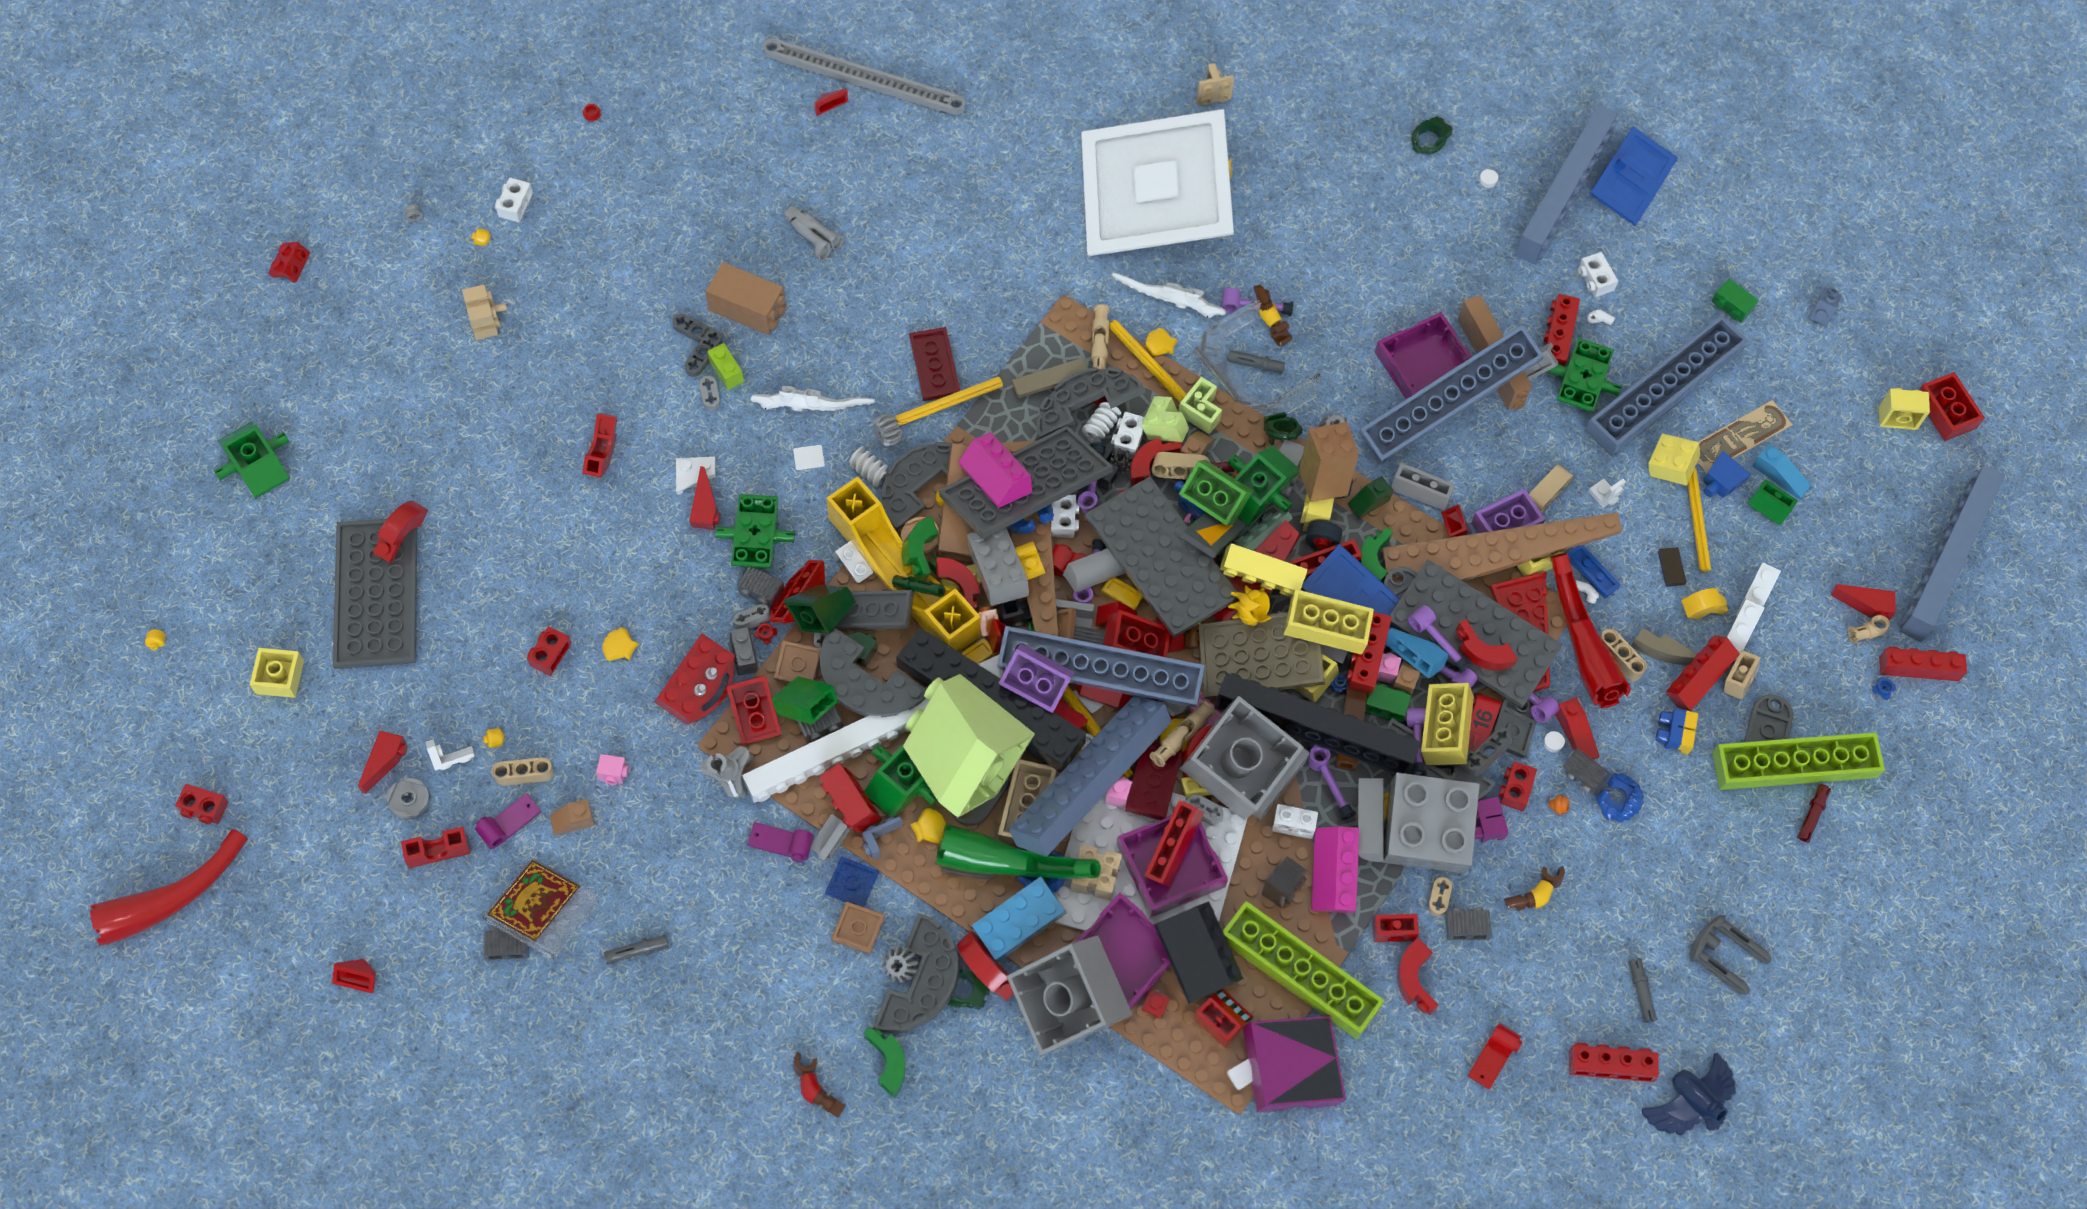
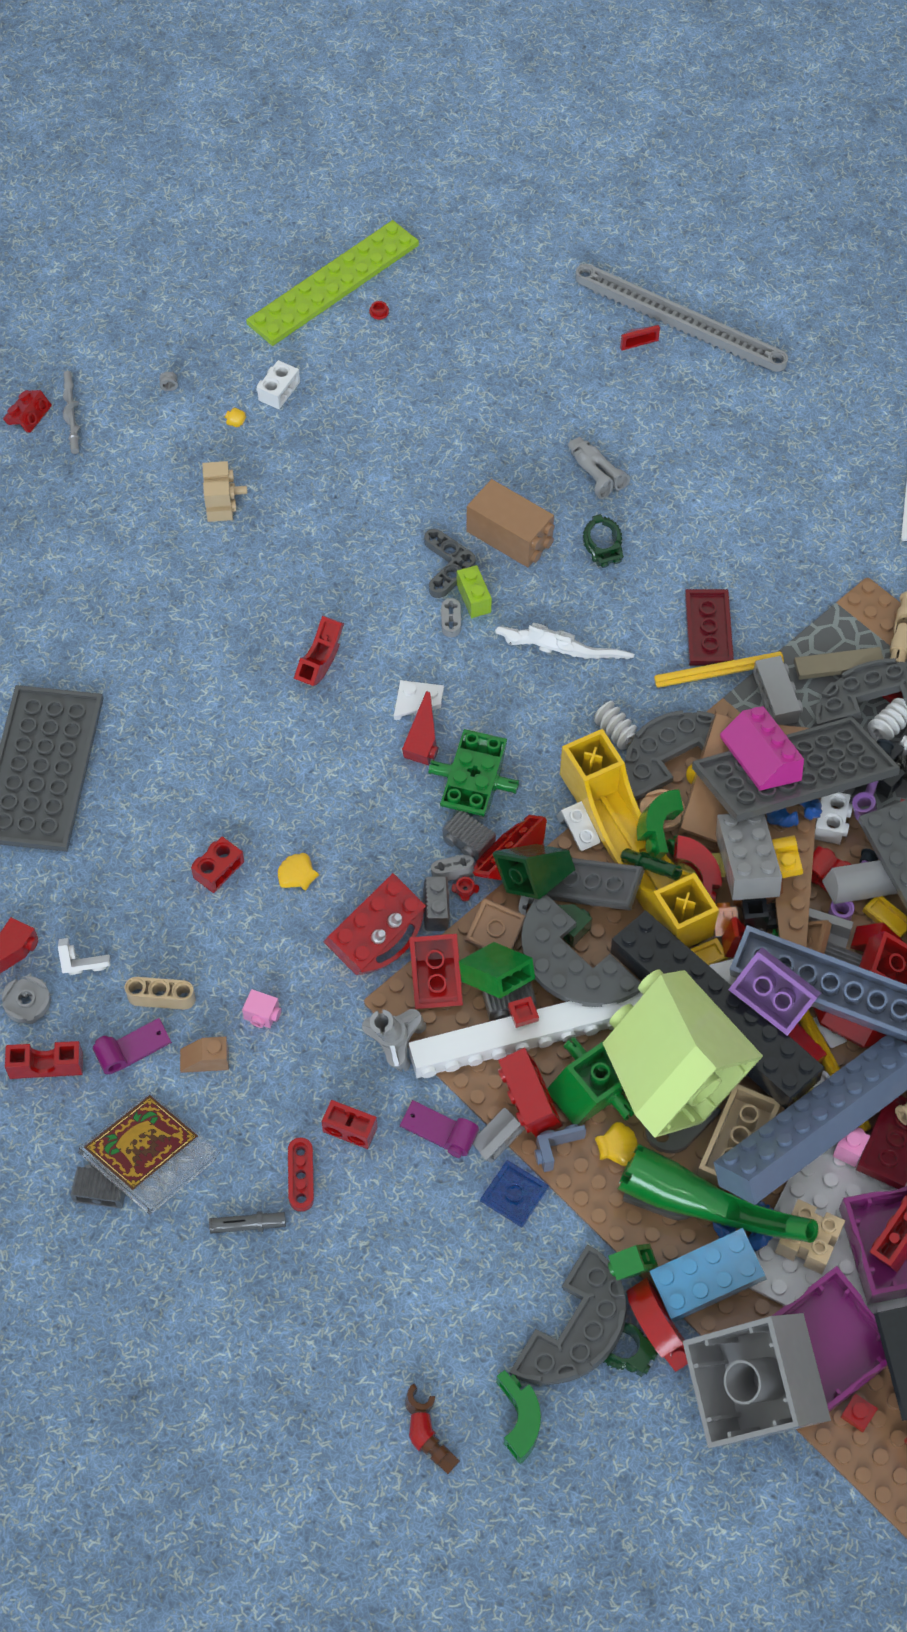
camera: 15 degrees right, 5 degrees down
(328, 258) = (68, 412): none -> light grey piece
(396, 528) = (77, 700): red arch -> none
(494, 737) = (136, 950): yellow piece -> none
(543, 91) = (332, 282): none -> lime plate
(670, 893) = (296, 1165): none -> red plate
(705, 852) = (349, 1124): none -> red brick
(808, 457) = (549, 704): white sticker -> none
(833, 732) = (523, 1012): none -> red plate
(835, 313) = (604, 556): none -> dark green piece
(858, 927) = (512, 1248): medium nougat plate -> none
(887, 430) = (643, 688): light grey gear -> none
(898, 972) = (552, 1311): light grey gear -> none
(957, 920) = (632, 1262): none -> green brick
(1001, 412) = (777, 690): none -> light grey brick

